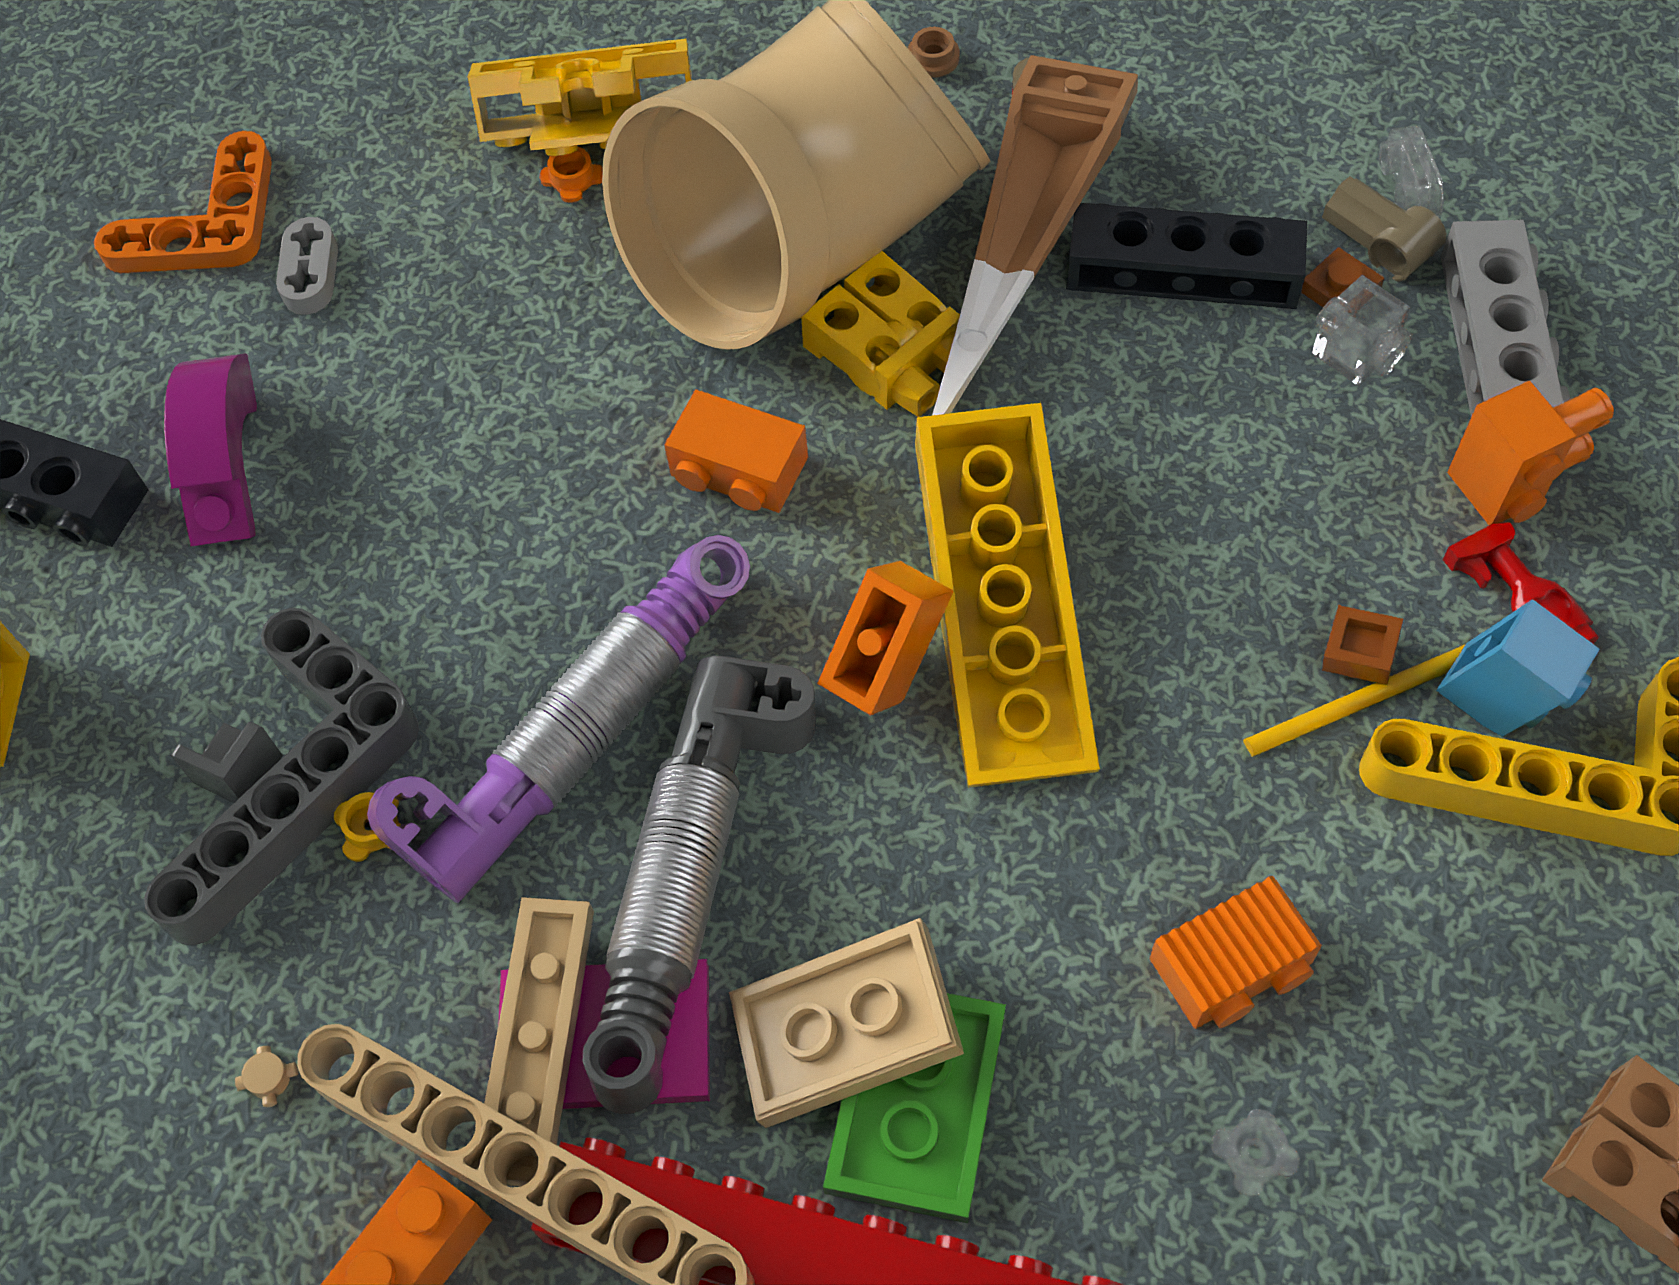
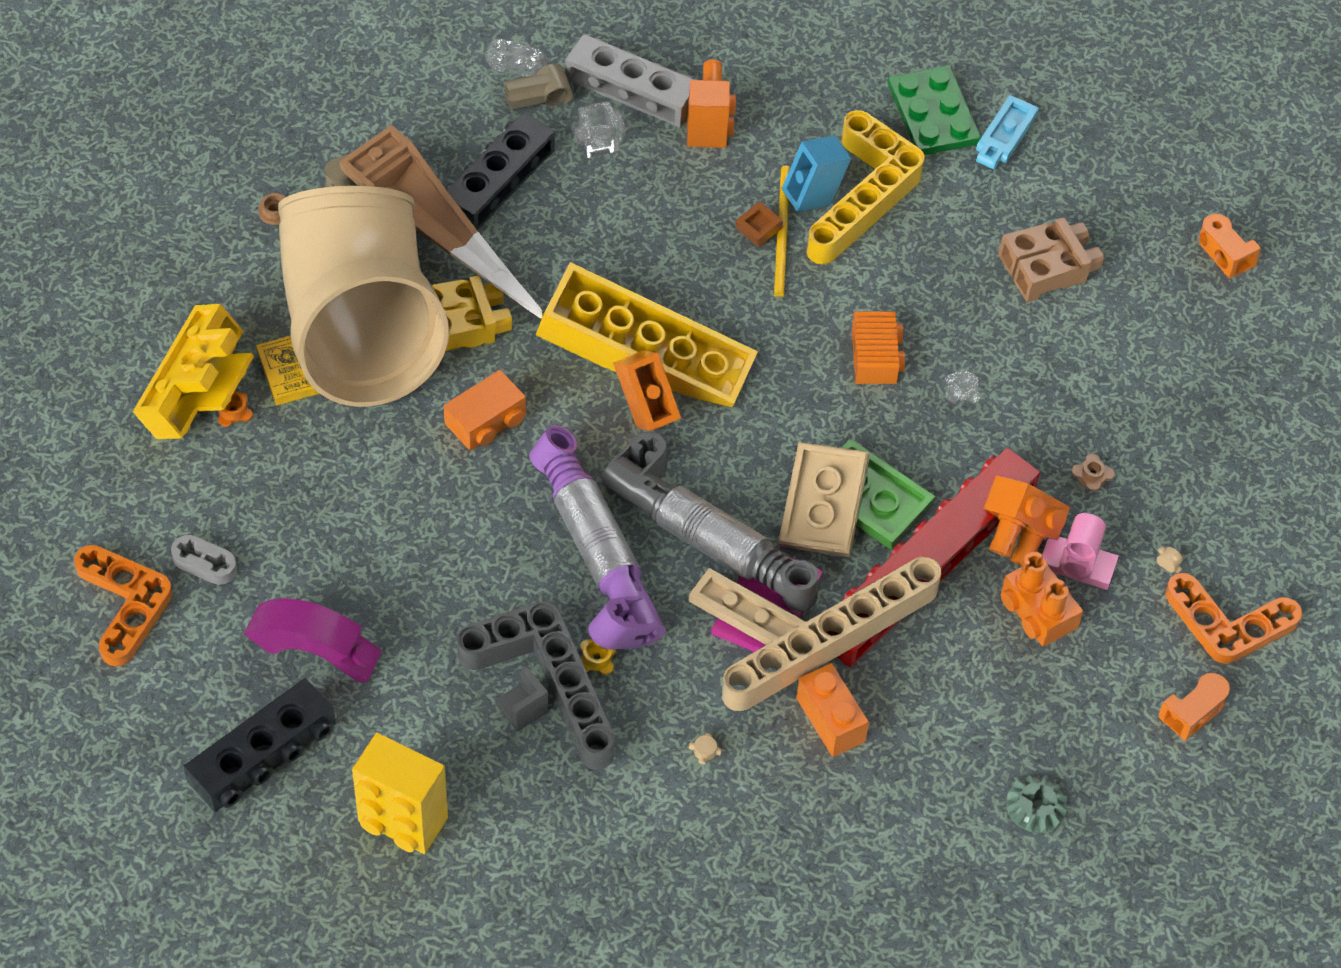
camera: 70 degrees left, 5 degrees down
(1335, 276) = (559, 120): dark orange plate -> none
(1493, 545) = (777, 152): red piece -> none

